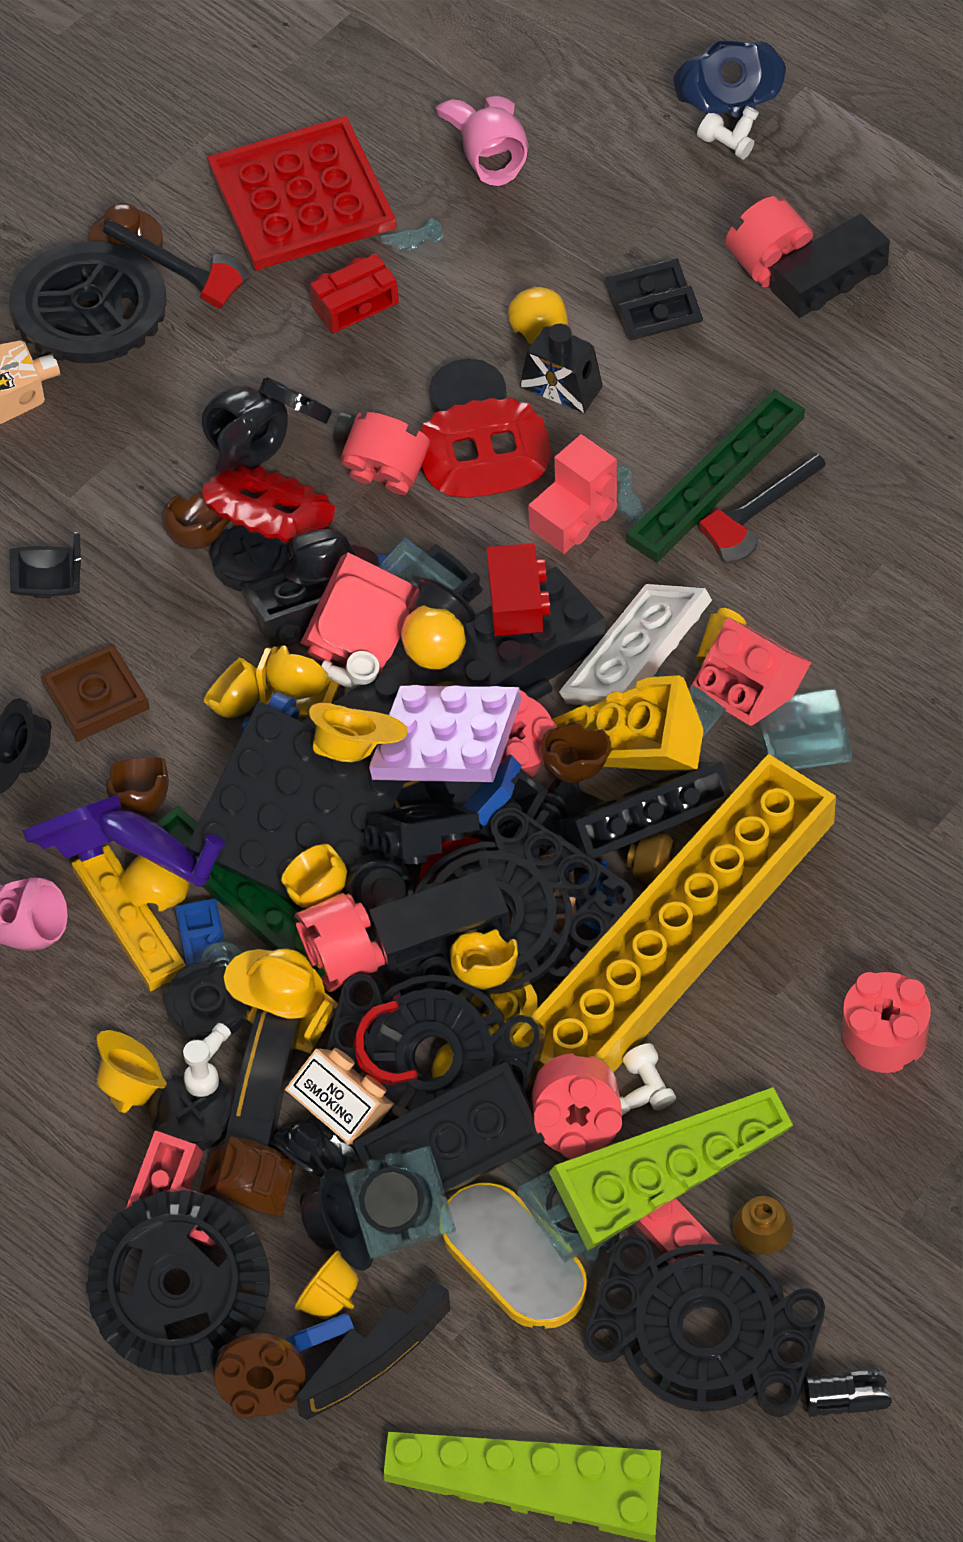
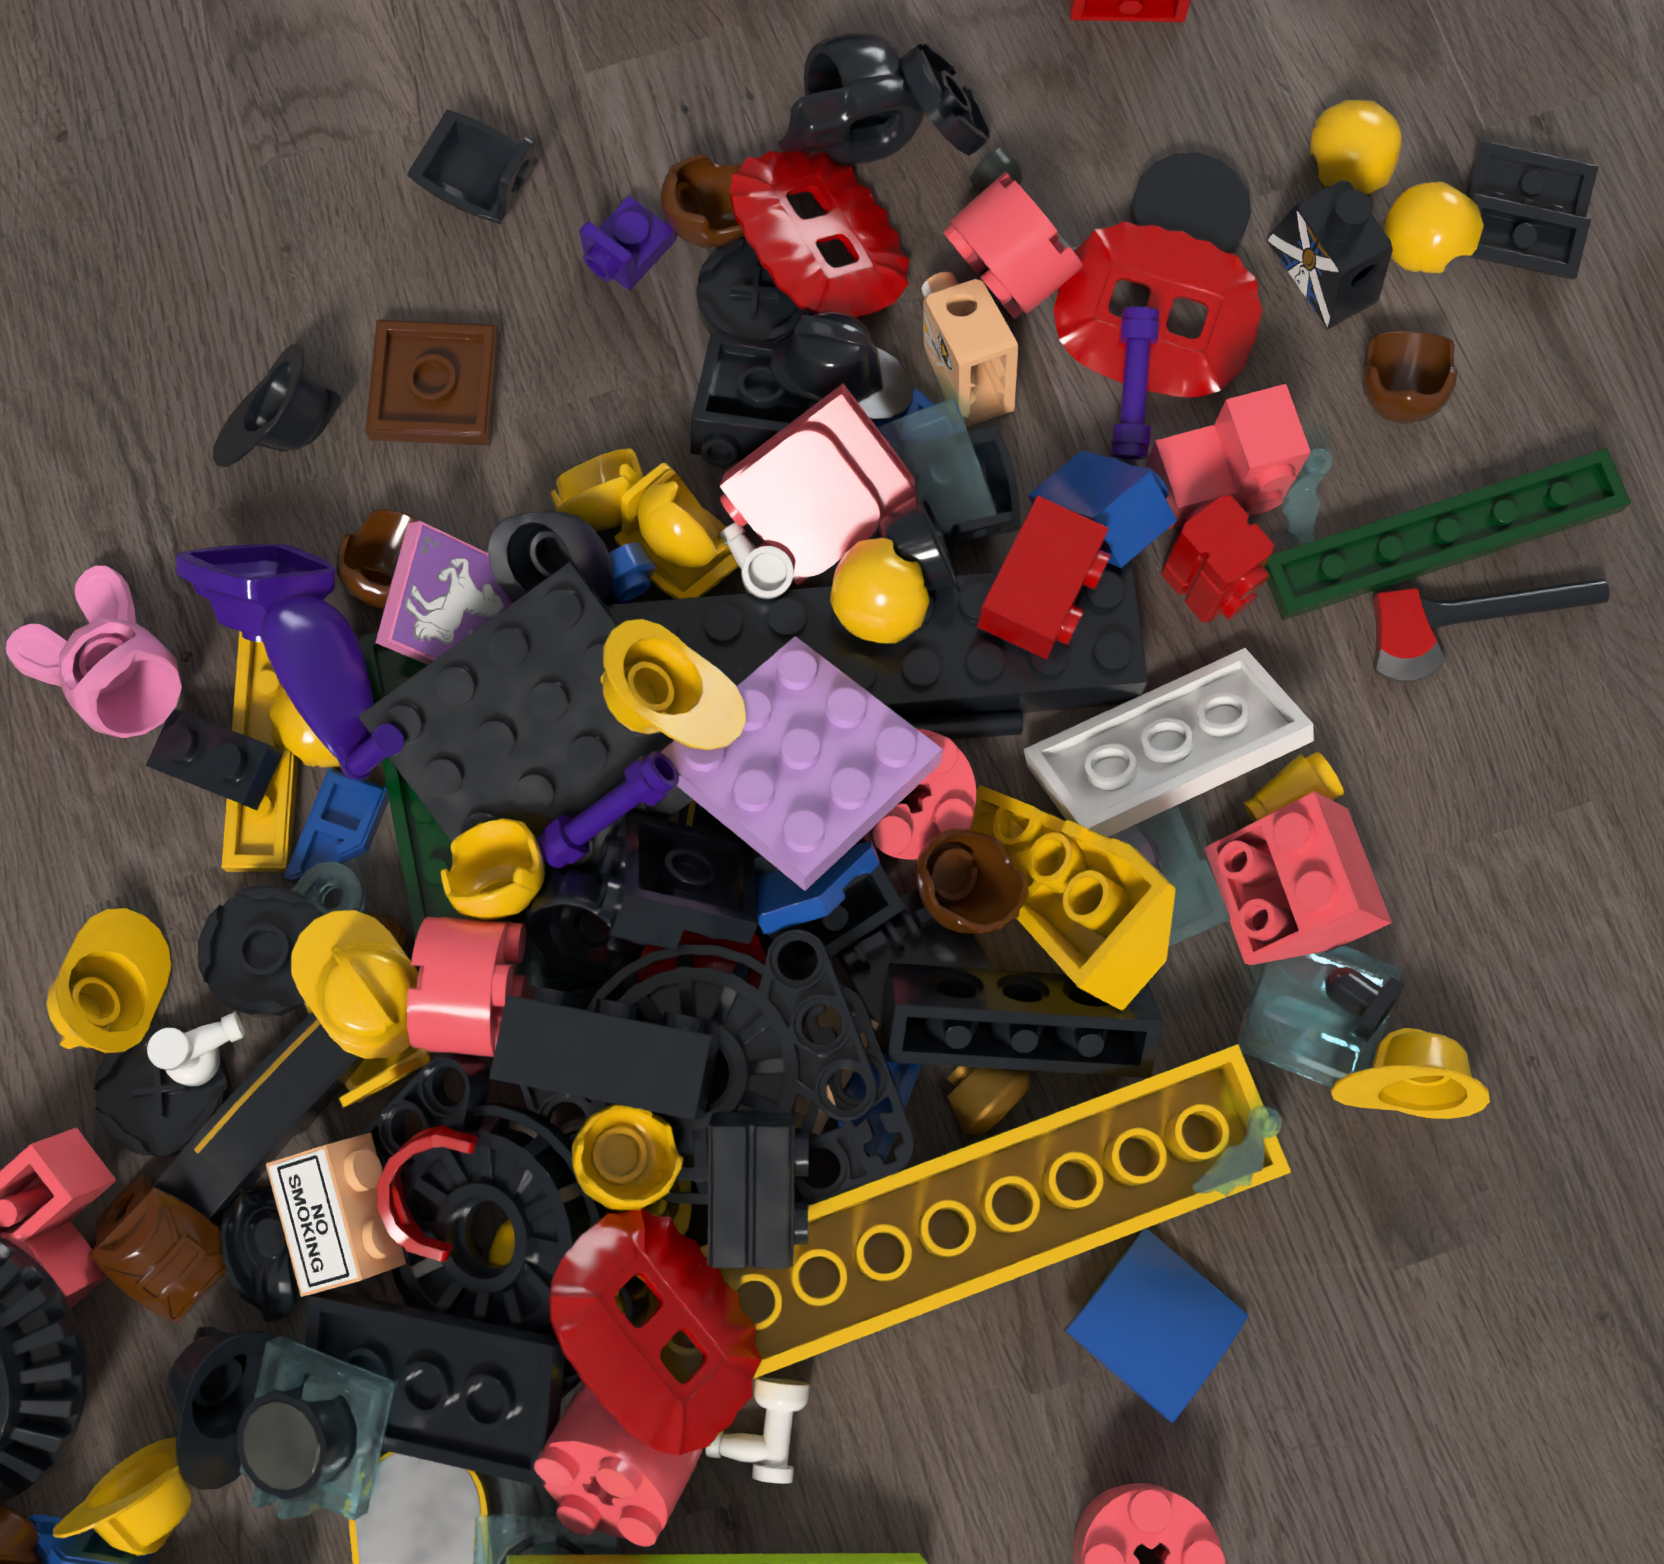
camera: 25 degrees right, 20 degrees up
(107, 931) = (214, 758): none -> black plate
(158, 567) = (626, 243): none -> dark purple bracket
(182, 778) = (437, 594): none -> tile
(223, 723) = (538, 544): none -> black piece
(373, 776) = (647, 781): none -> dark purple bar
(393, 511) = (965, 331): none -> light nougat torso
(483, 460) = (1139, 331): none -> dark purple bar
(506, 1008) = (624, 1361): none -> red piece
(531, 528) = (1114, 495): none -> blue brick
(561, 936) = (754, 1190): none -> black brick
(602, 544) = (1218, 560): none -> red brick
(608, 330) = (1432, 227): none -> yellow hair
(644, 409) = (1408, 374): none -> reddish brown hair
(806, 801) = (1241, 1161): none -> clear light blue piece
(818, 921) = (1157, 1324): none -> blue slope
(821, 705) = (1362, 998): none -> black piece
(875, 733) = (1417, 1076): none -> yellow piece

